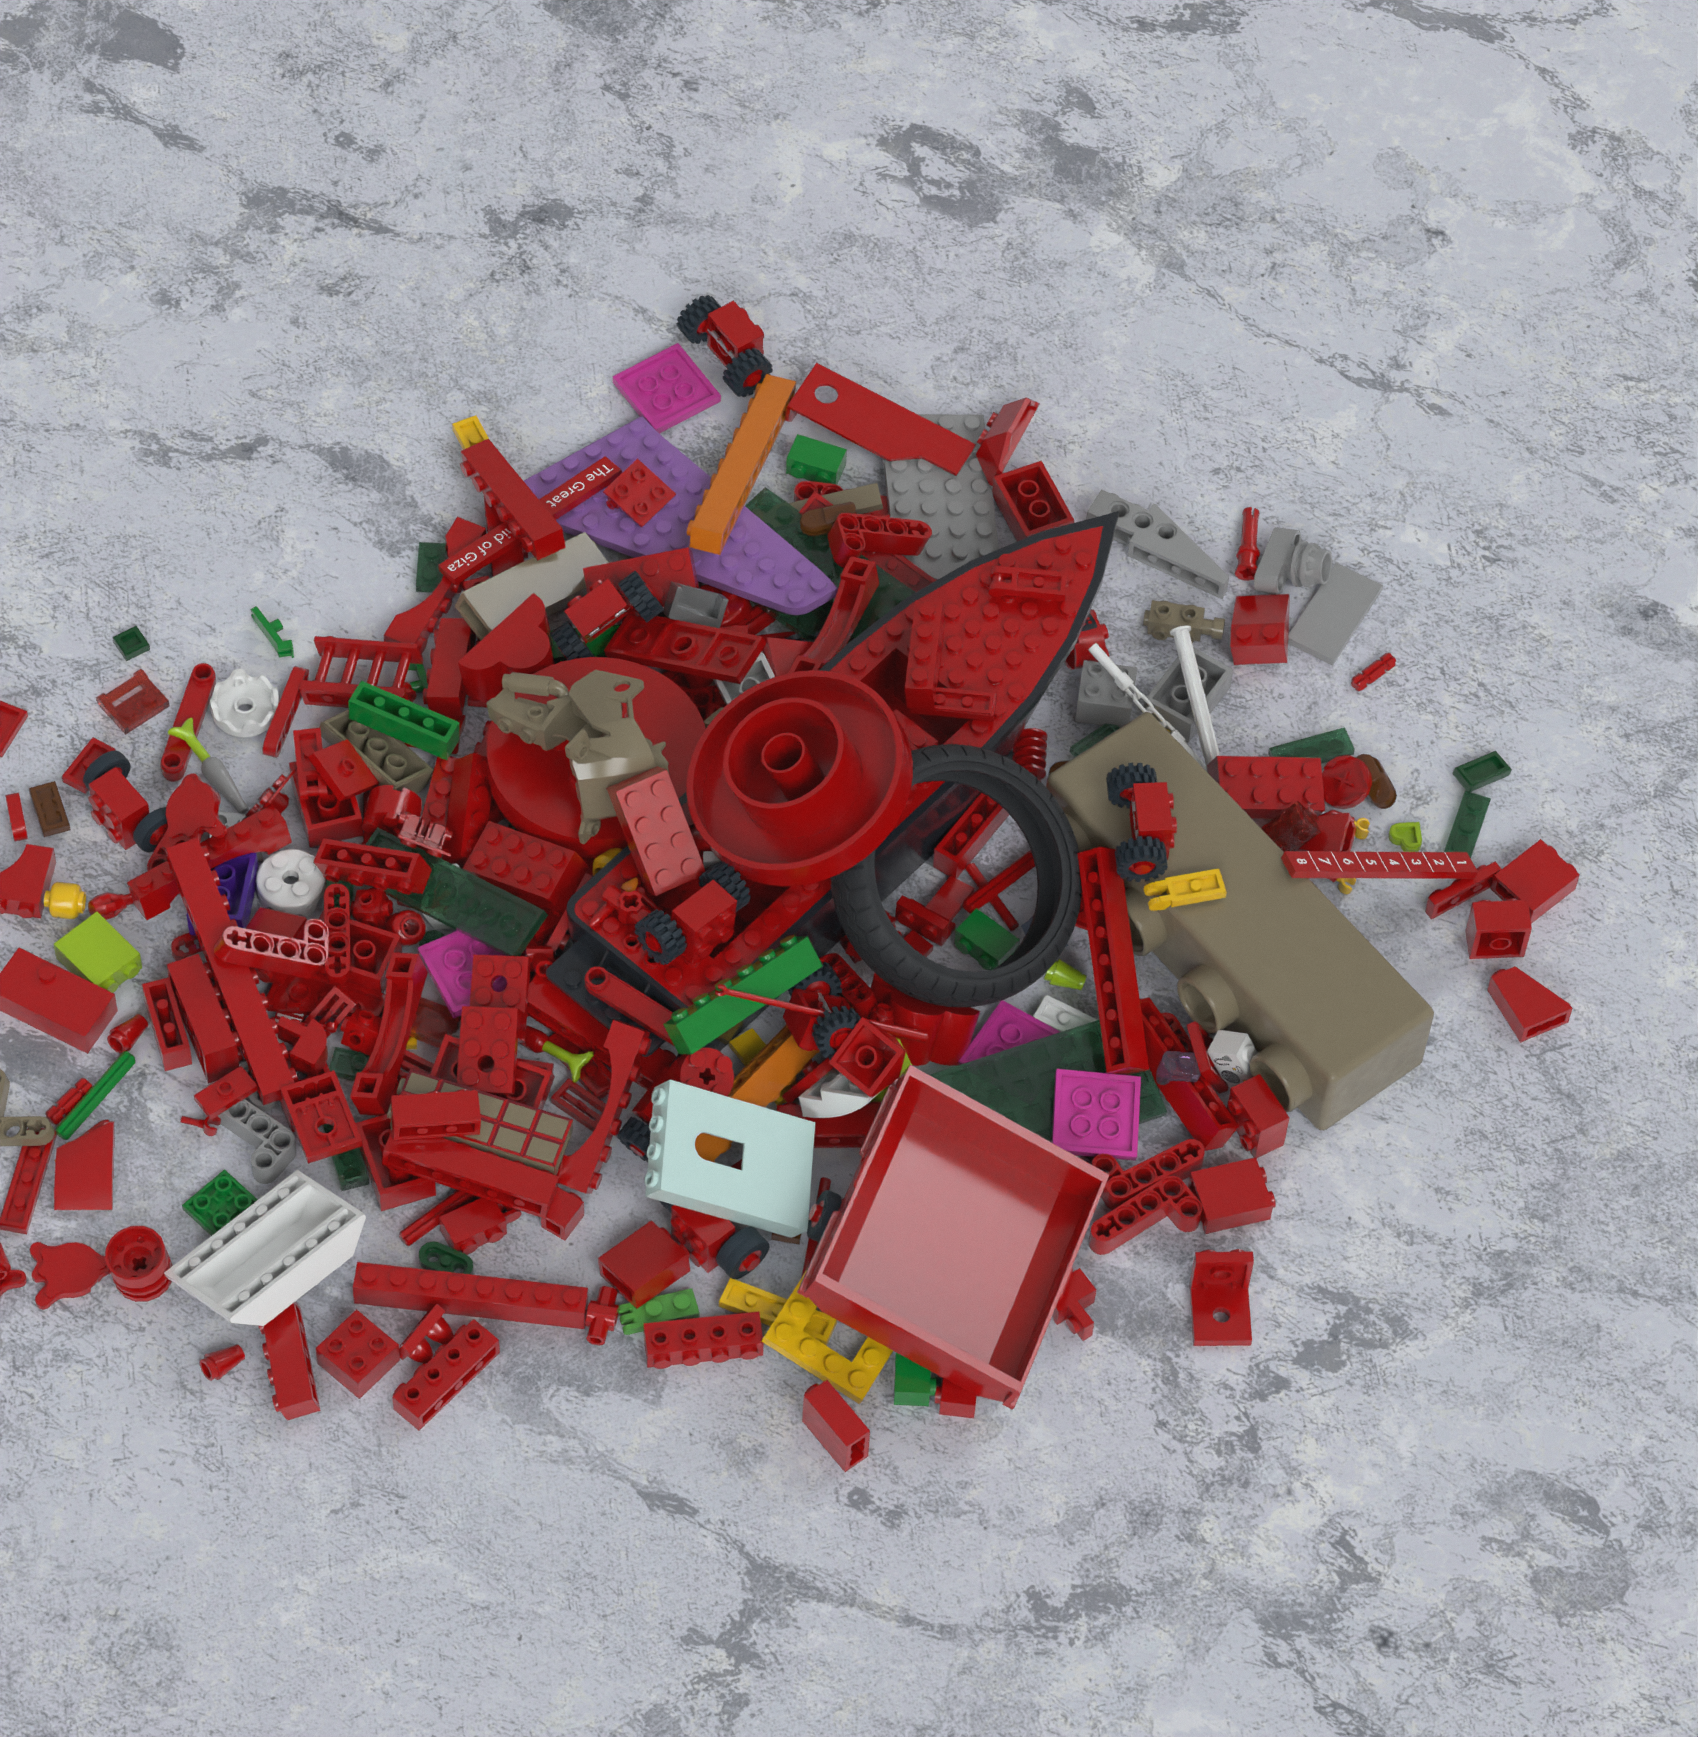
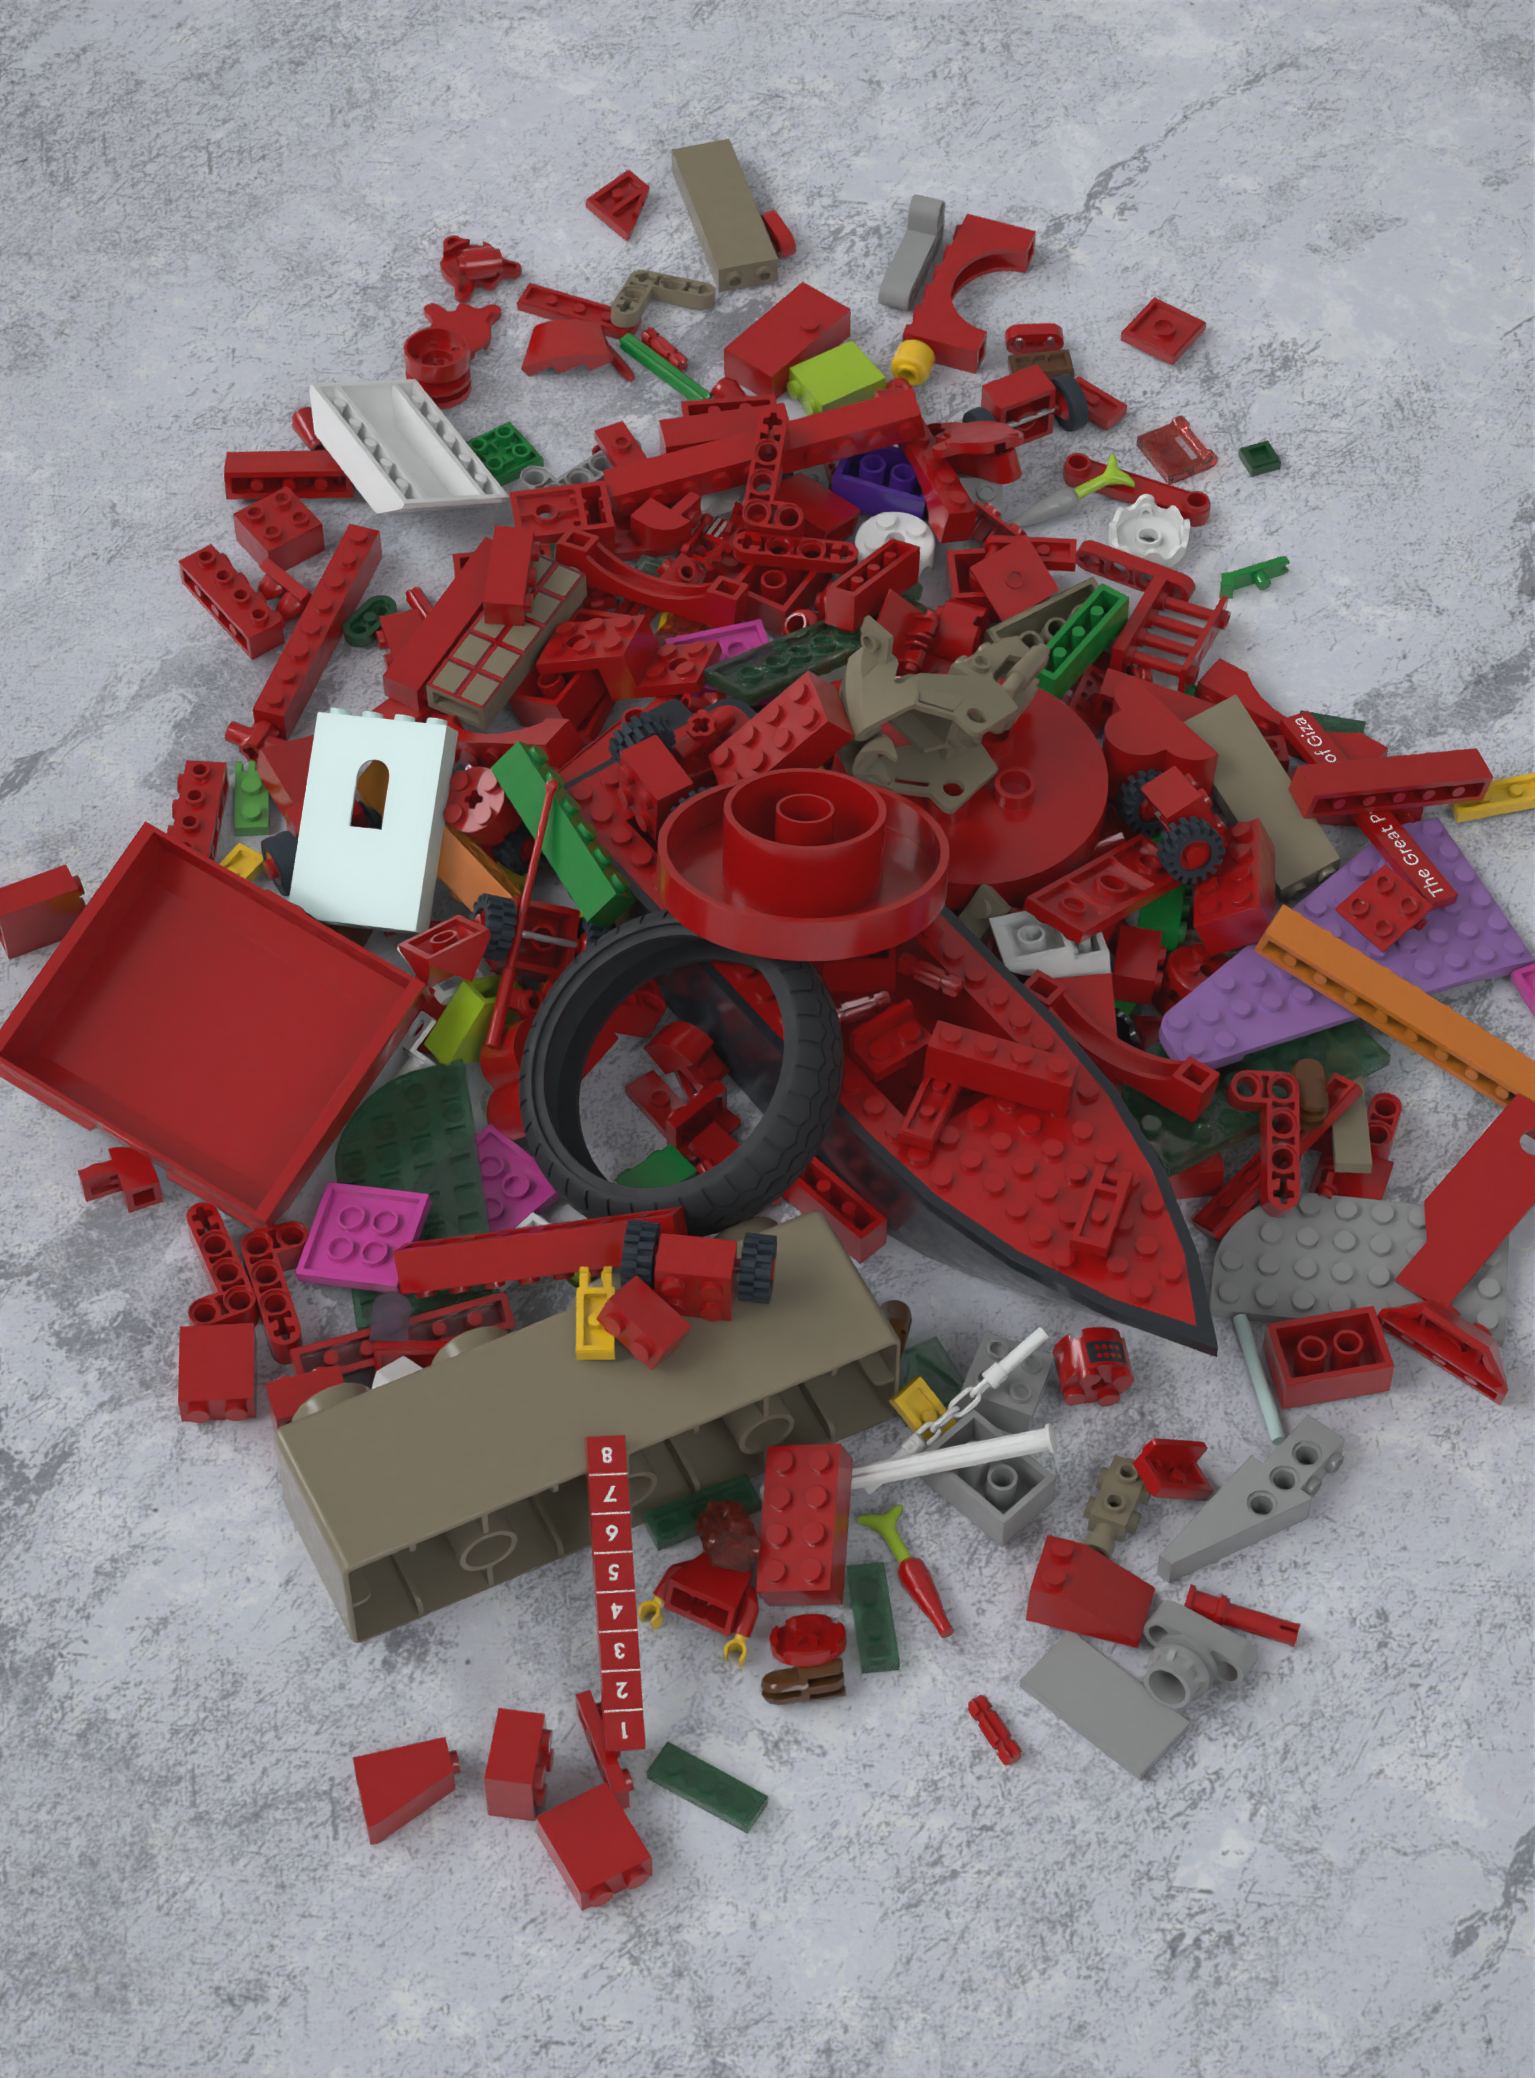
camera: 105 degrees right, 5 degrees down
(695, 605) = (1178, 915): dark grey panel -> none
(815, 460) = (1441, 1135): green brick -> none
(1030, 751) = (924, 1281): red piece -> none
(1153, 585) = (1172, 1469): none -> red bracket
(1196, 849) = (643, 1322): none -> red brick
(1221, 1285) = (88, 1323): red bracket -> none
(1272, 730) = (911, 1570): none -> red piece
(1407, 836) = (712, 1710): lime tile -> none
(1482, 771) = (795, 1826): dark green tile -> none

